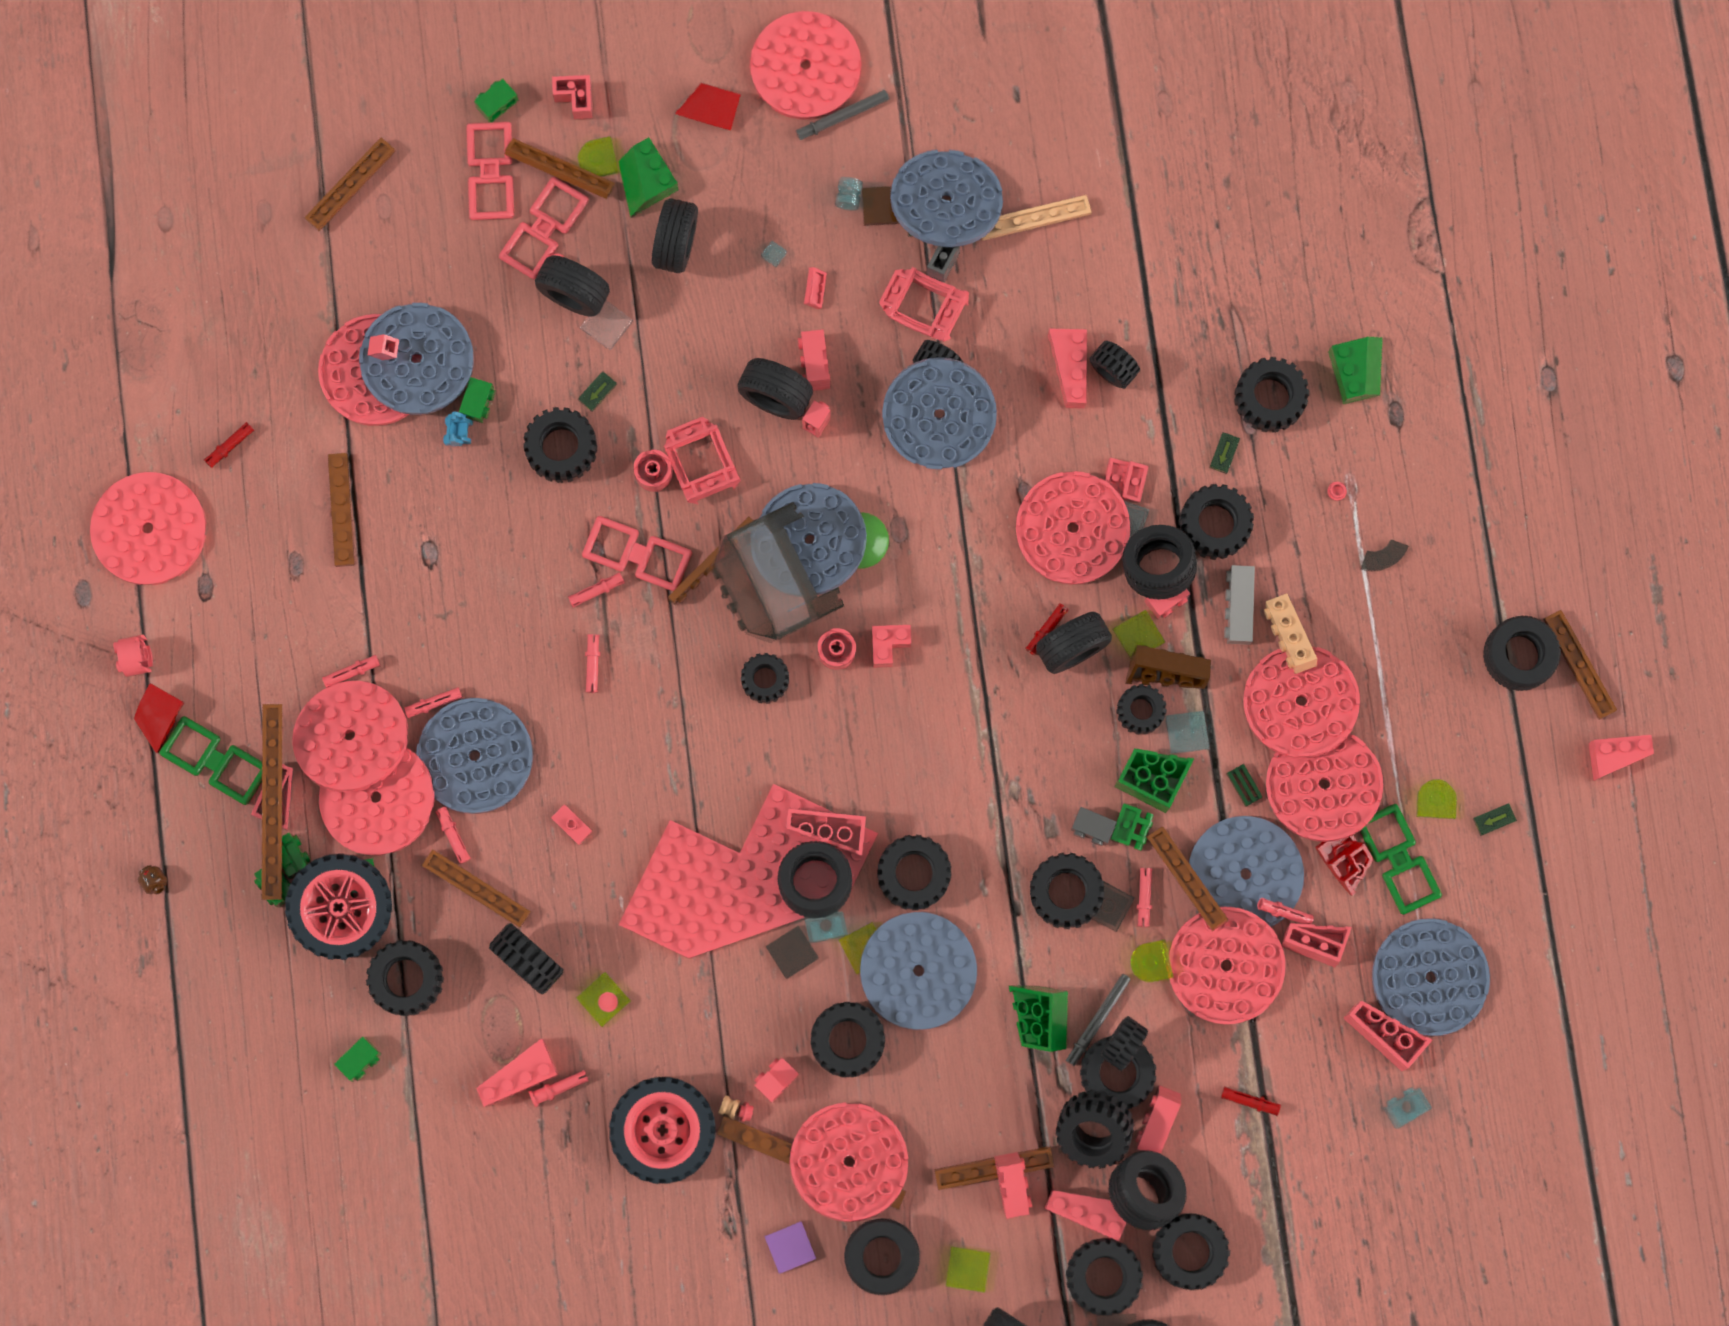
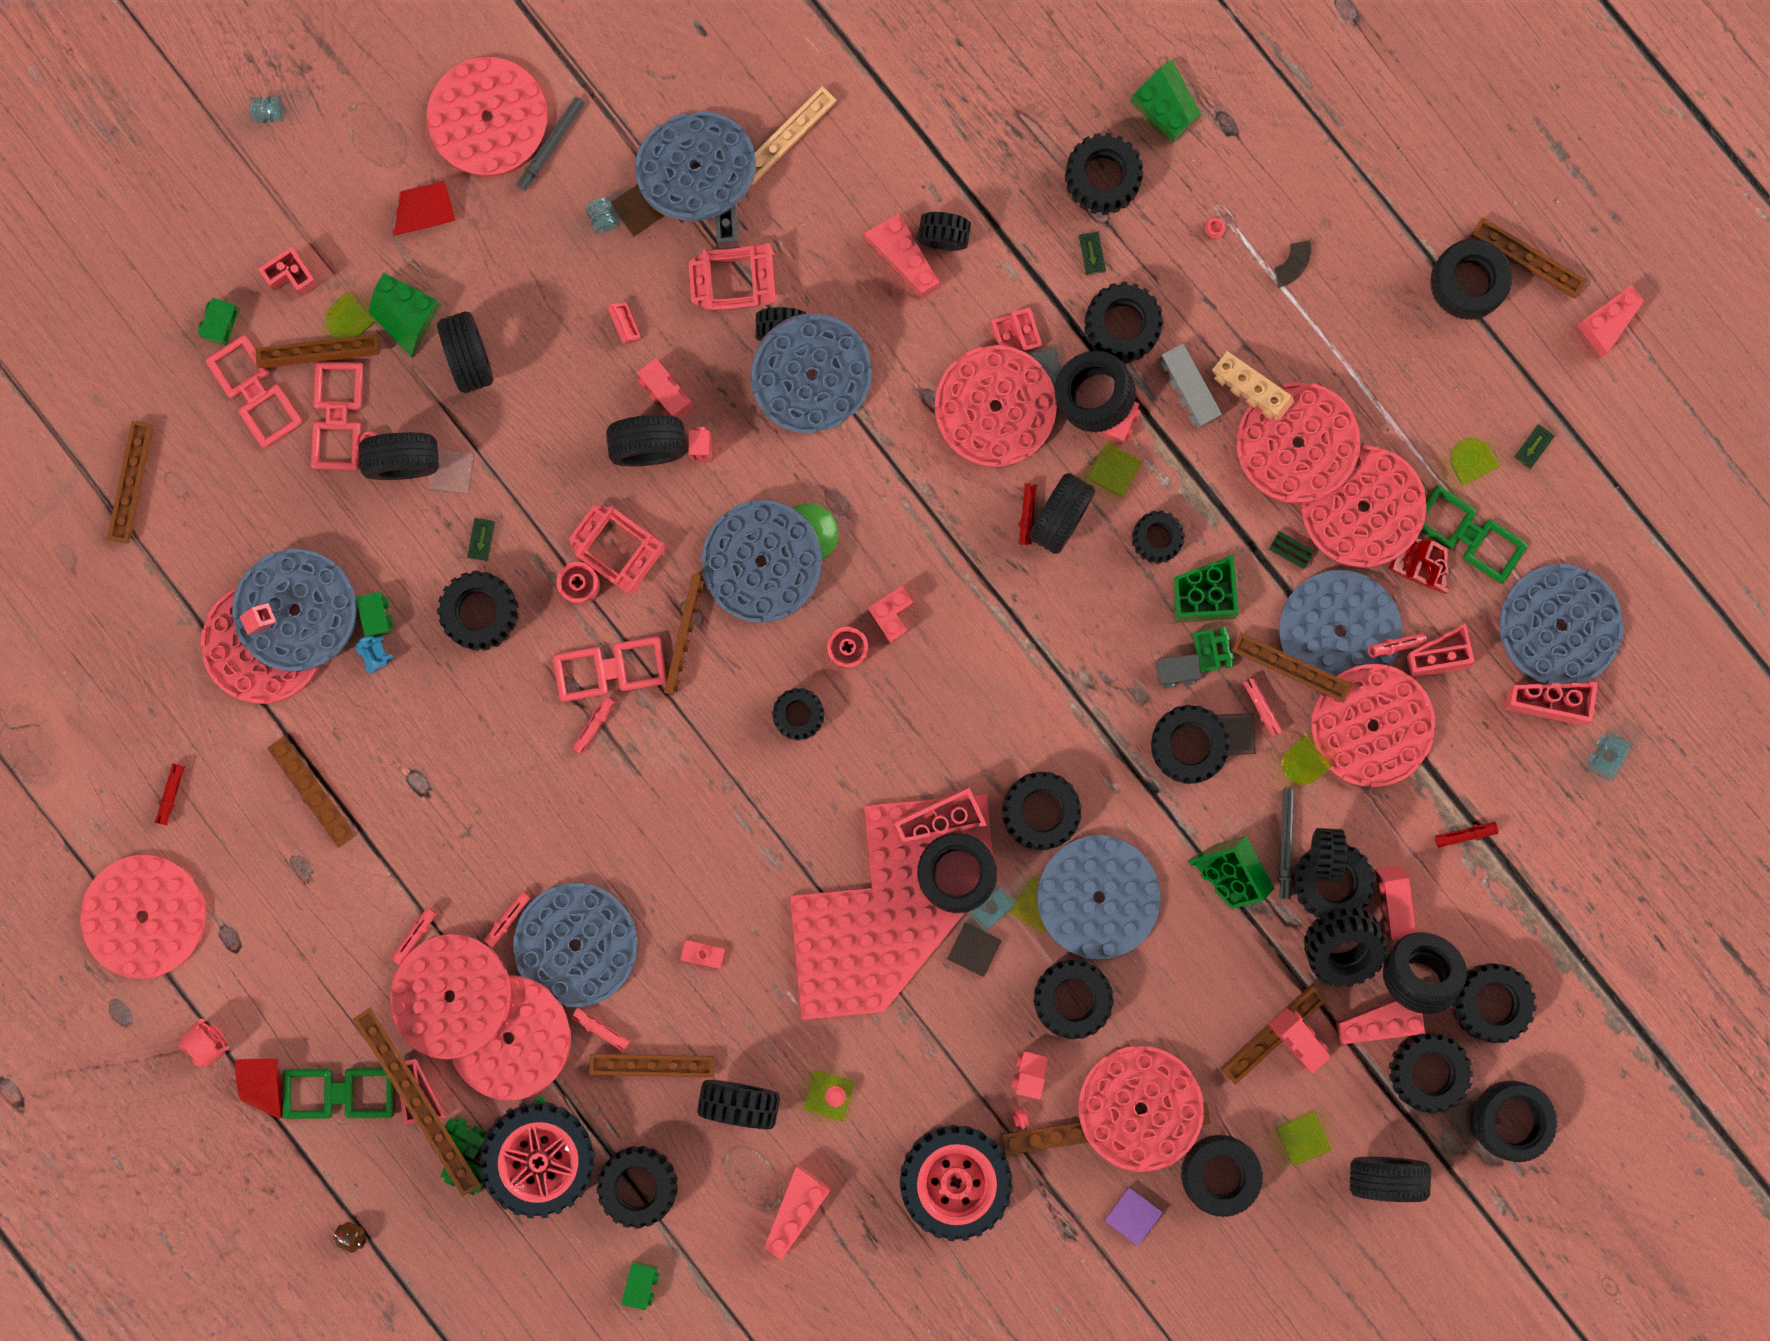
camera: 25 degrees left, 5 degrees up
(549, 1091) = (832, 1208): coral pin -> none
(592, 663) = (631, 795): coral pin -> none
(729, 1107) = (1002, 1124): light nougat wheel -> none
(768, 580) = (748, 623): clear smoke windscreen -> none
(774, 253) = (566, 313): clear light blue tile -> none
(1168, 668) = (1160, 484): reddish brown wedge -> none
(1187, 732) = (1211, 532): clear light blue tile -> none

